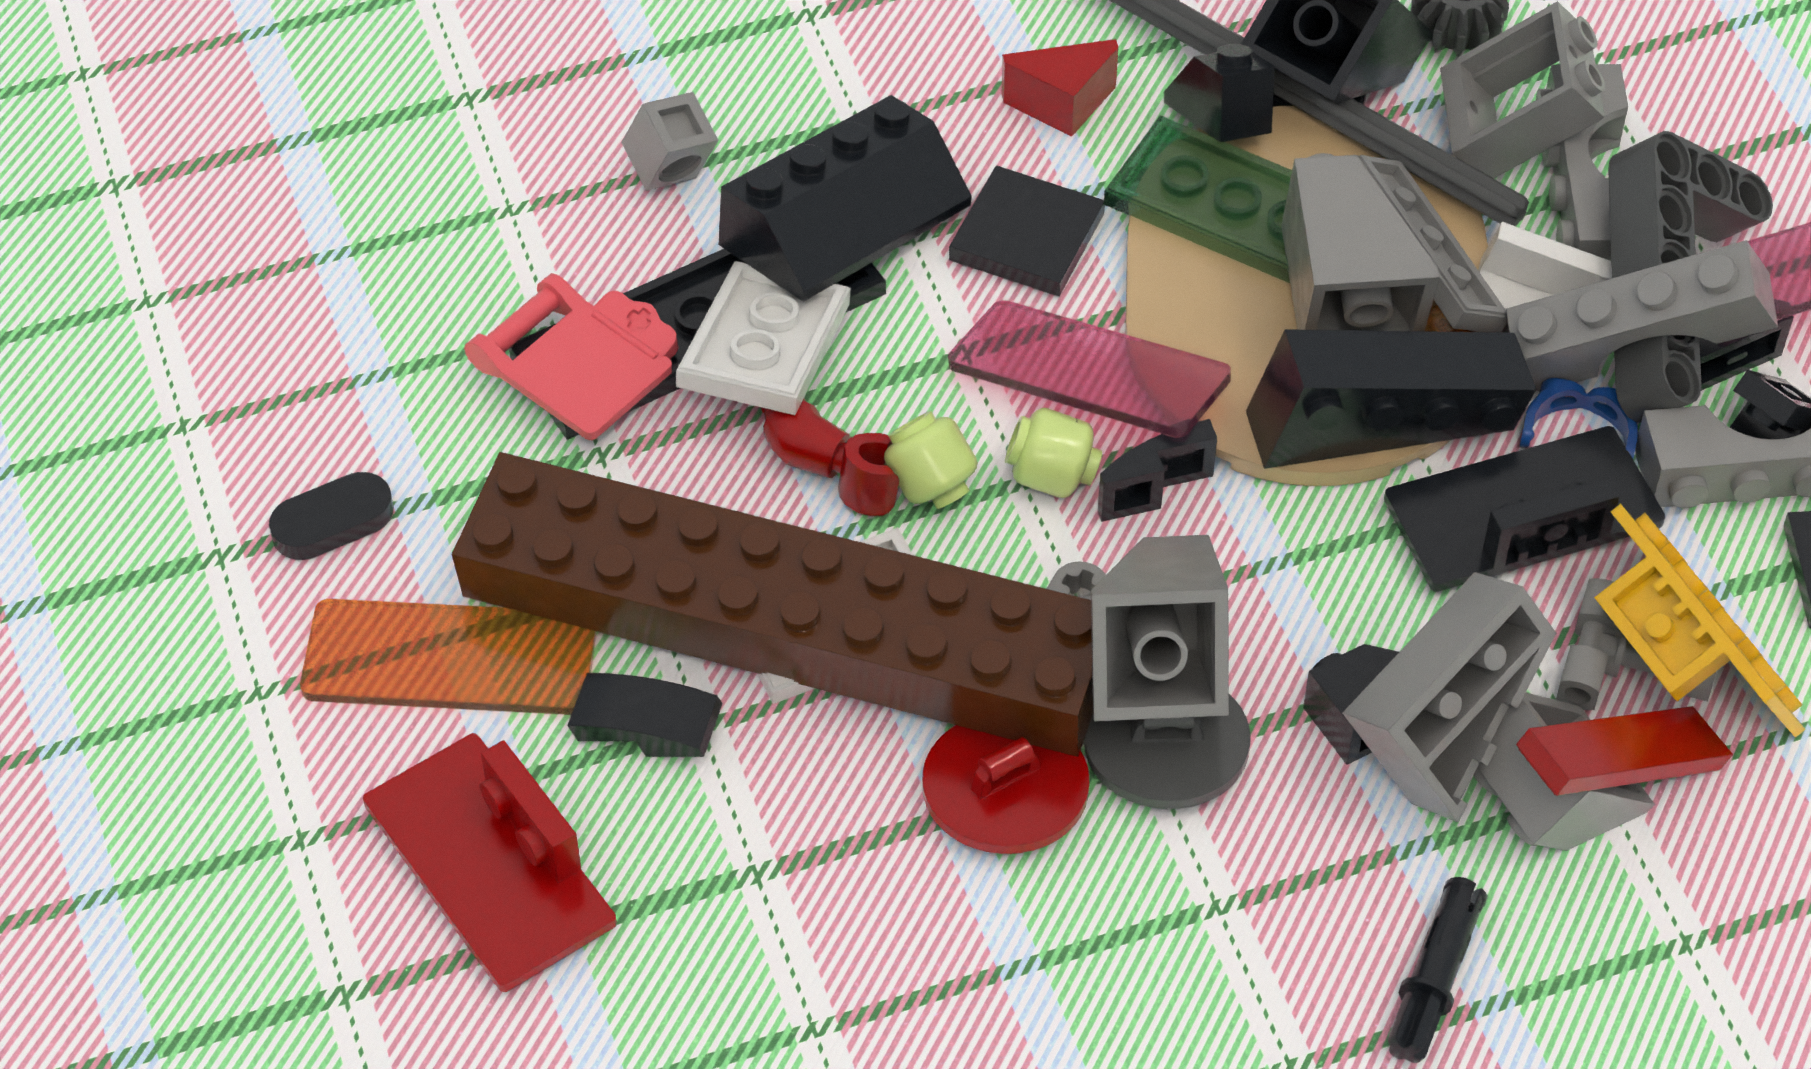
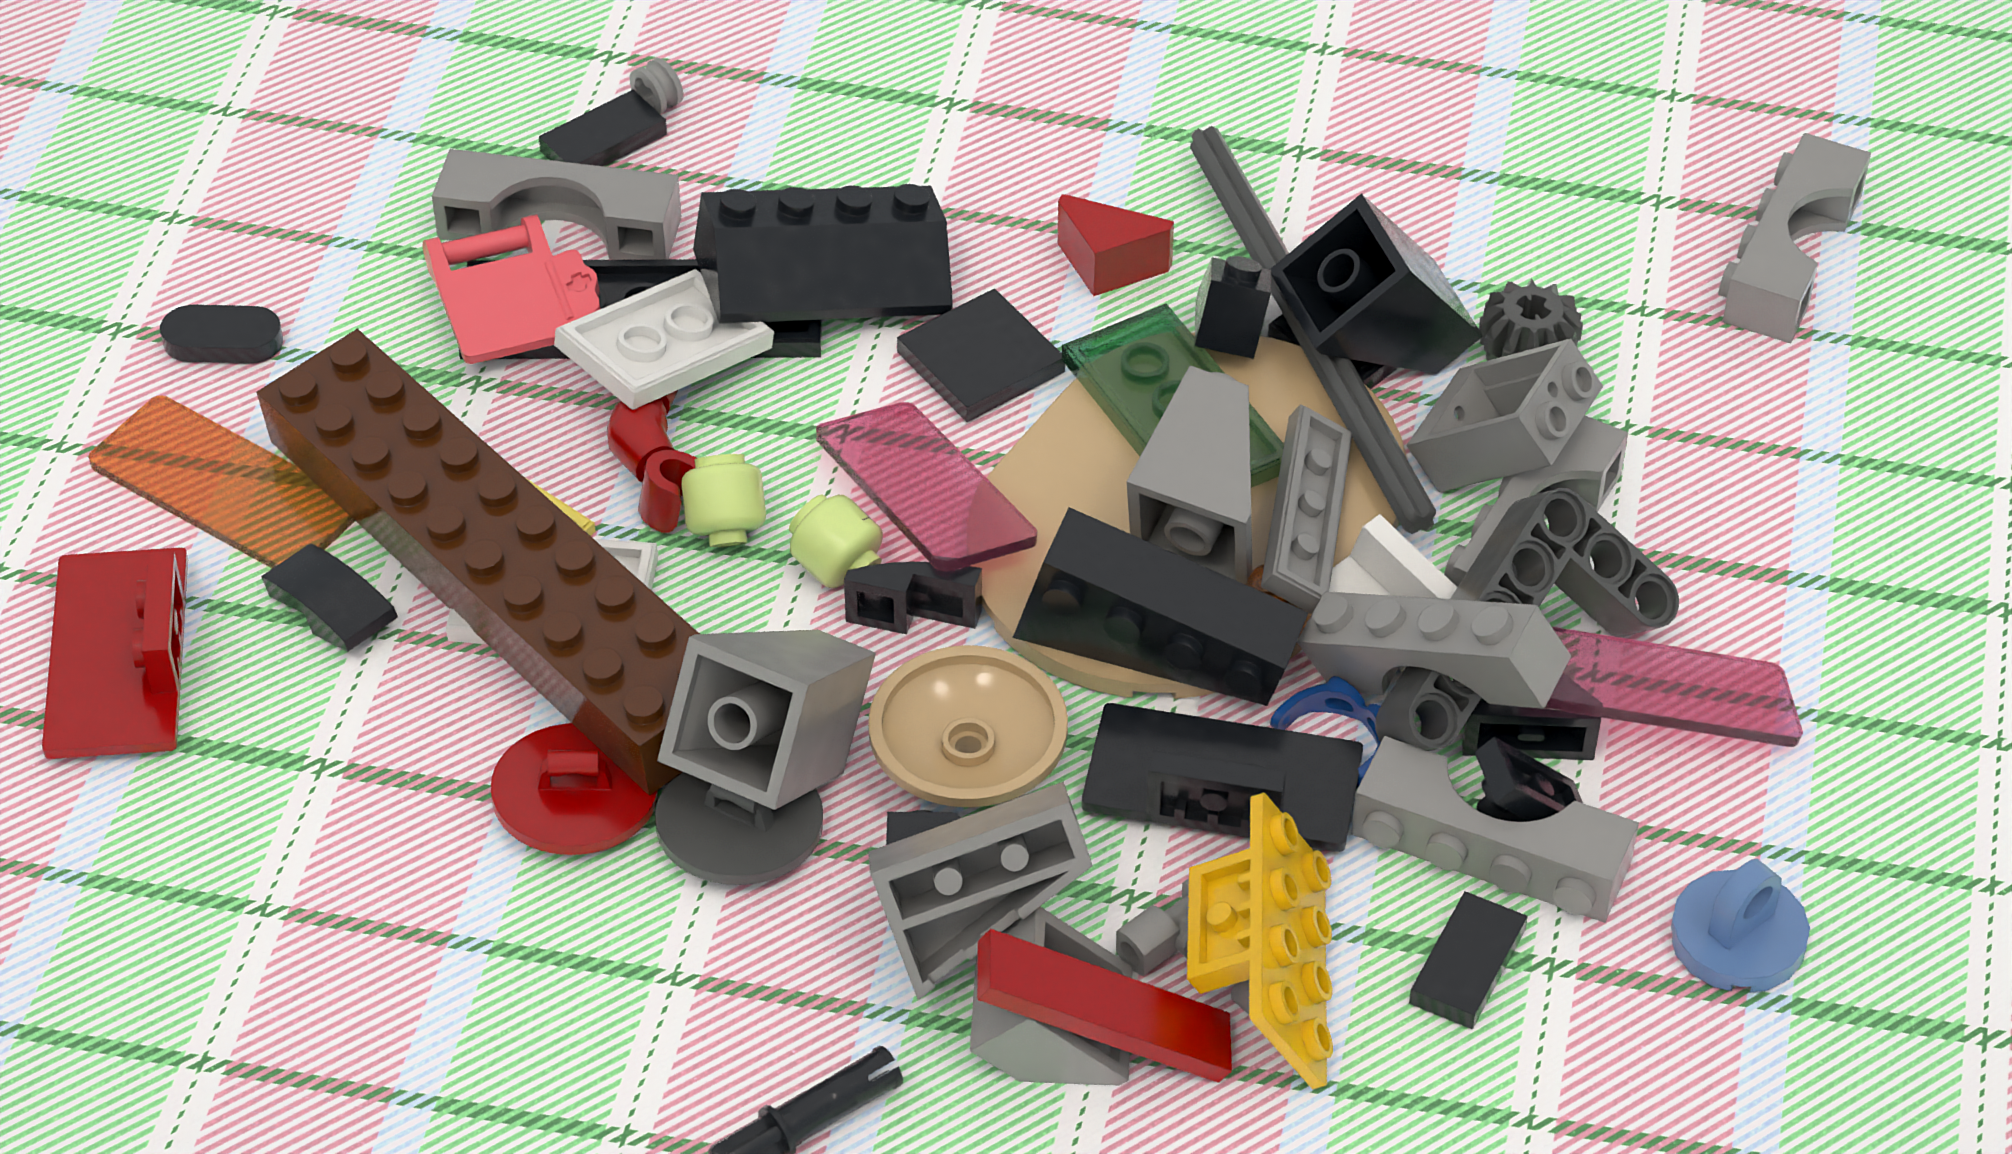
camera: 30 degrees right, 5 degrees down
(531, 174) = (605, 132): none -> black tile
(549, 107) = (657, 84): none -> light grey bush
(616, 233) = (627, 208): none -> light grey arch
(669, 141) = (721, 148): light grey brick -> none
(1314, 540) = (968, 726): none -> tan dish

